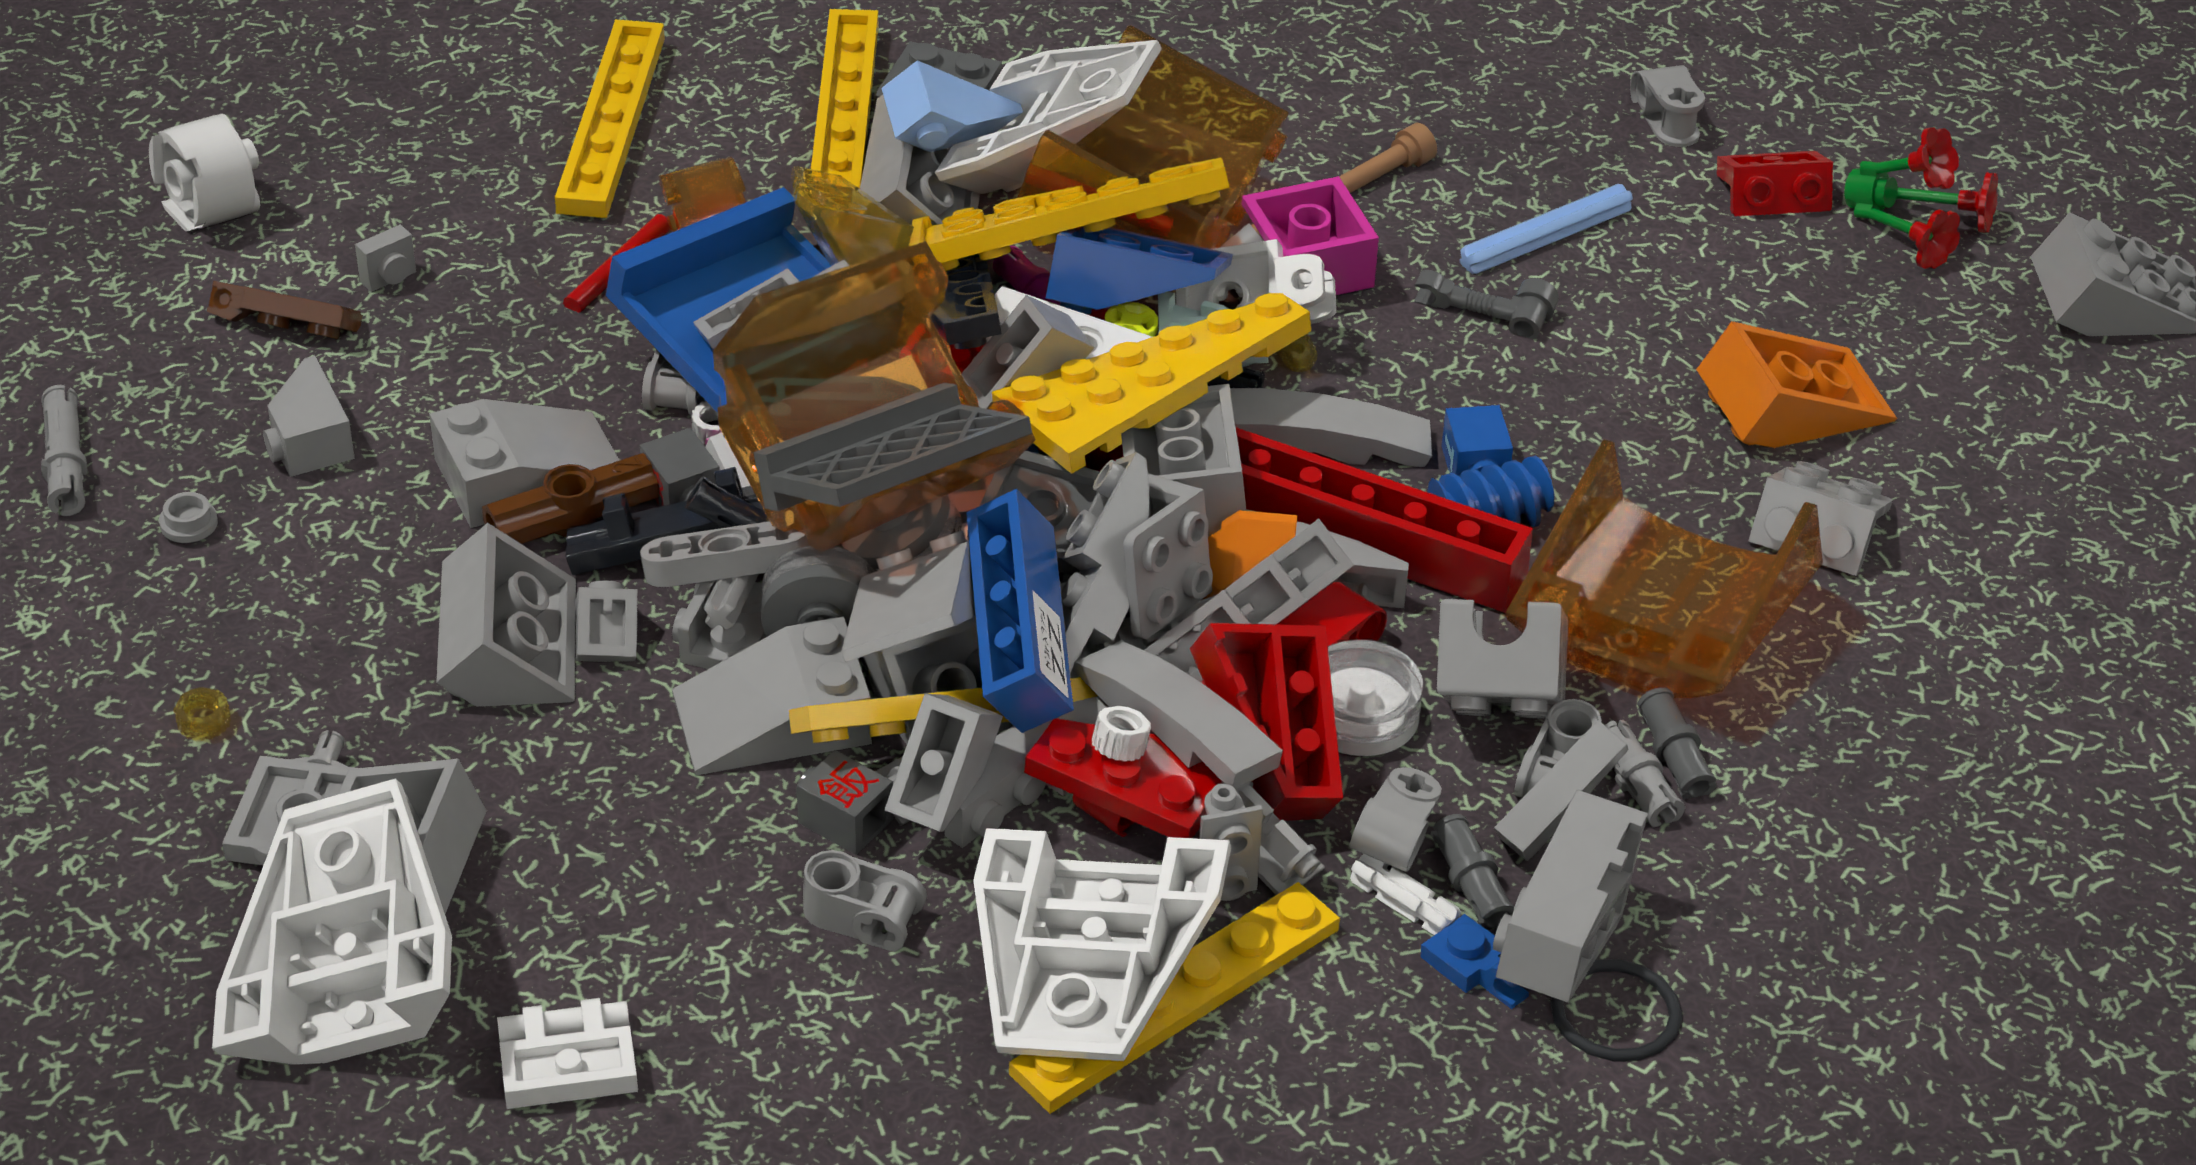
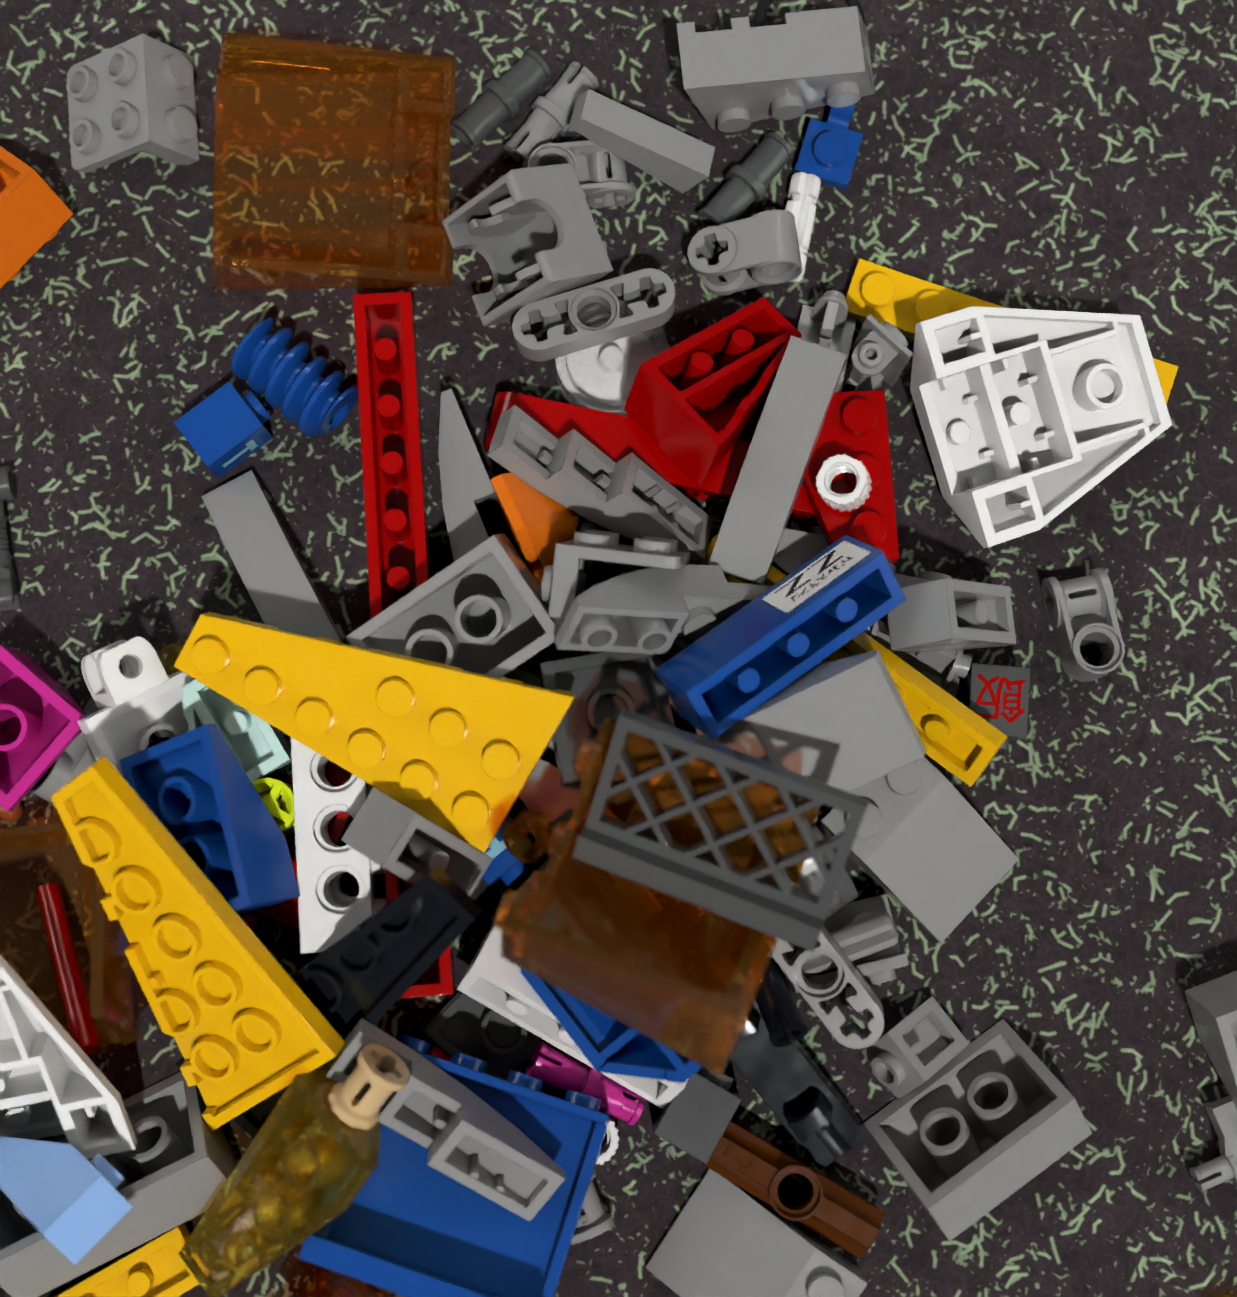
camera: 120 degrees left, 40 degrees up
(857, 245) = (370, 1061): none -> tan bush
(1391, 685) = (549, 312): none -> light grey beam

